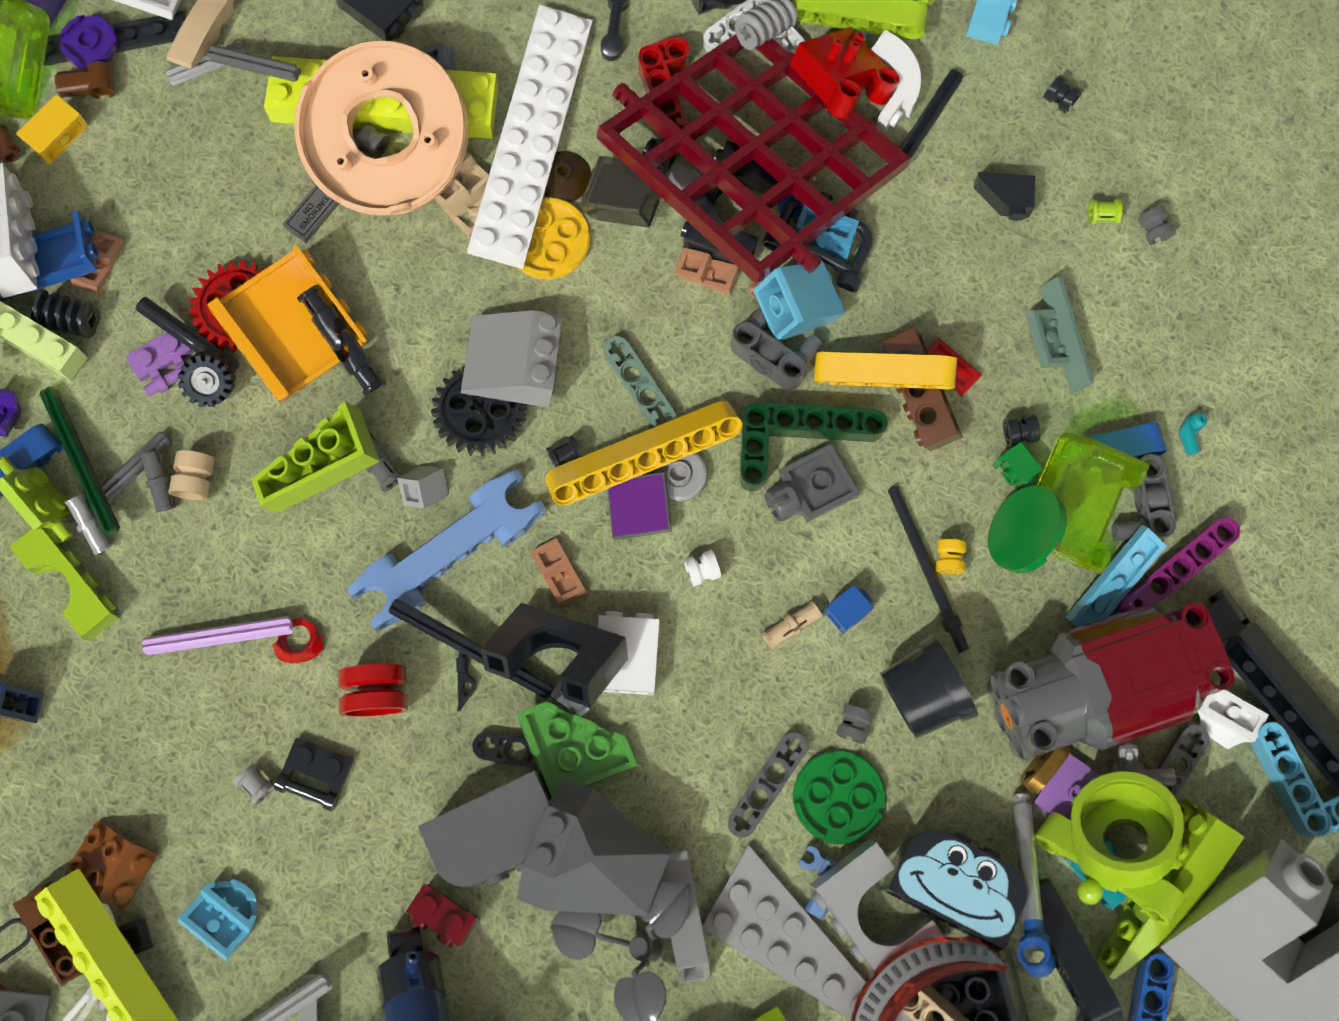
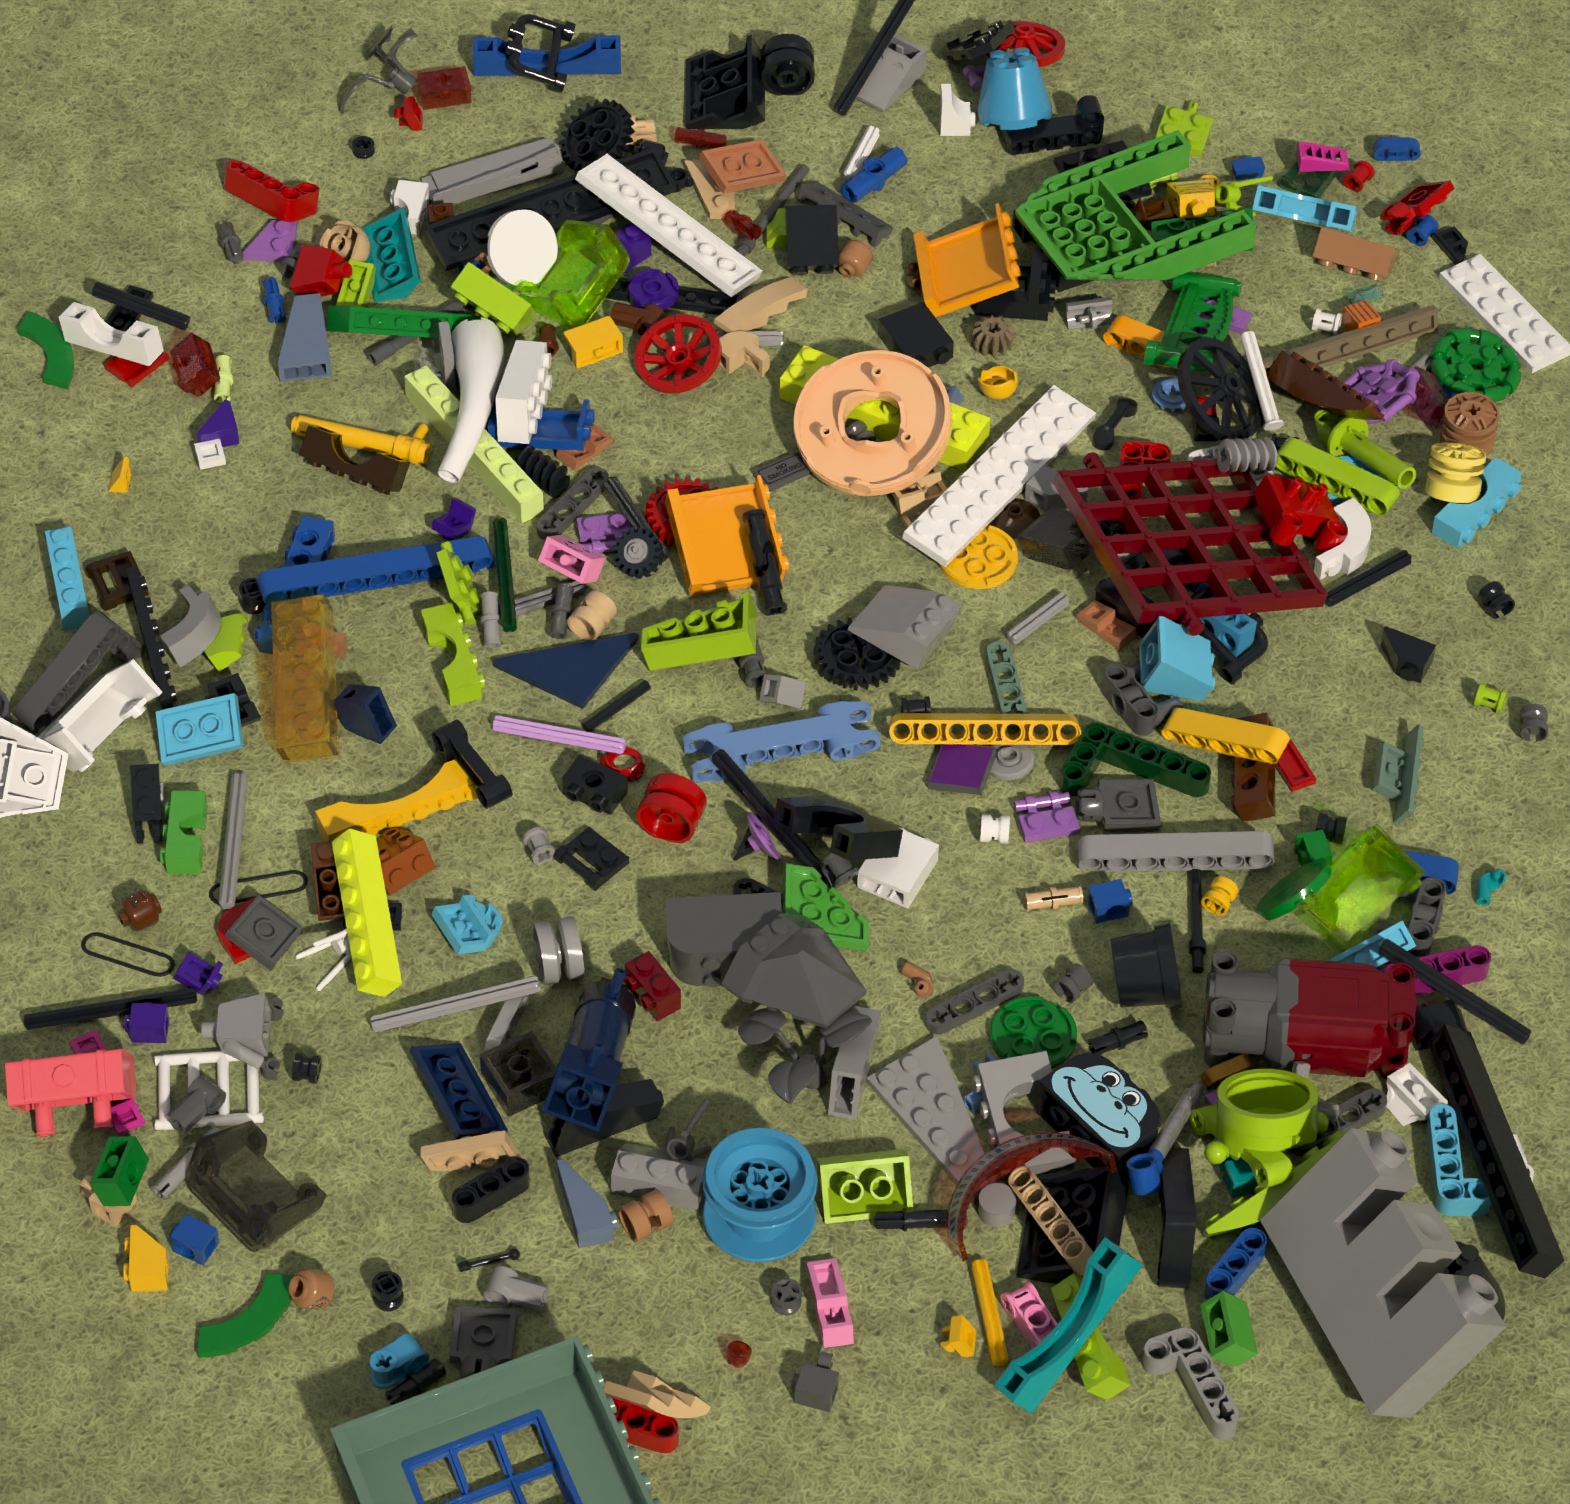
camera: 25 degrees right, 25 degrees down
(108, 337) = (575, 505): none -> dark grey beam
(115, 709) = (452, 744): none -> black piece
(133, 745) = (442, 792): none -> yellow arch
(141, 414) = (572, 559): none -> bright pink brick
(143, 110) = (678, 356): none -> red wheel
(197, 546) = (570, 670): none -> dark blue tile
(207, 79) = (741, 349): none -> tan brick
(254, 63) = (787, 344): dark grey axle -> none
(262, 571) = (616, 706): none -> black bar
(263, 679) = (594, 785): none -> black brick
(329, 922) = (558, 950): none -> light grey wheel
(479, 683) = (761, 838): none -> medium lavender dish
(487, 16) = (998, 382): none -> yellow hair
(558, 572) = (868, 790): nougat slope -> none
(582, 130) = (1043, 493): none -> light grey slope
(637, 290) = (1037, 618): none -> light grey axle
(705, 780) = (922, 979): none -> medium nougat arm
(749, 535) = (1048, 823): none -> medium lavender plate
(889, 524) = (1176, 851): none -> light grey beam
(923, 768) = (1118, 1038): none -> black pin
(1222, 583) = (1456, 992): none -> black axle

